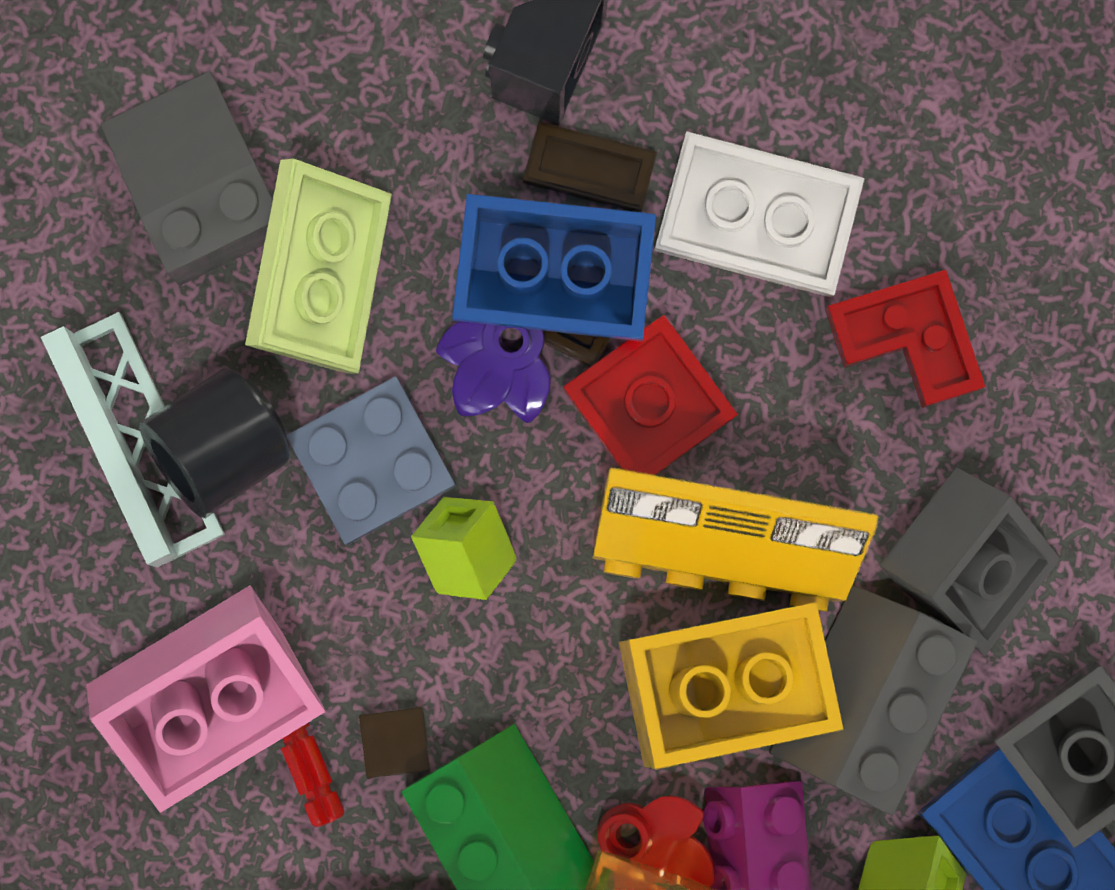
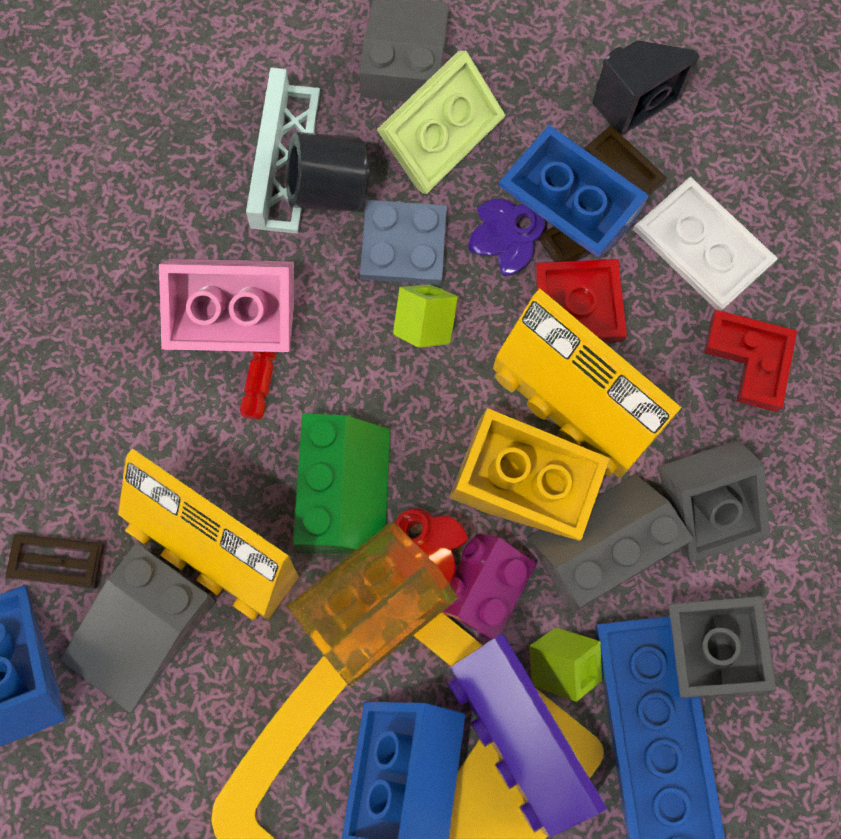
camera: 30 degrees right, 10 degrees down
(394, 742) = (315, 394): dark brown tile -> none

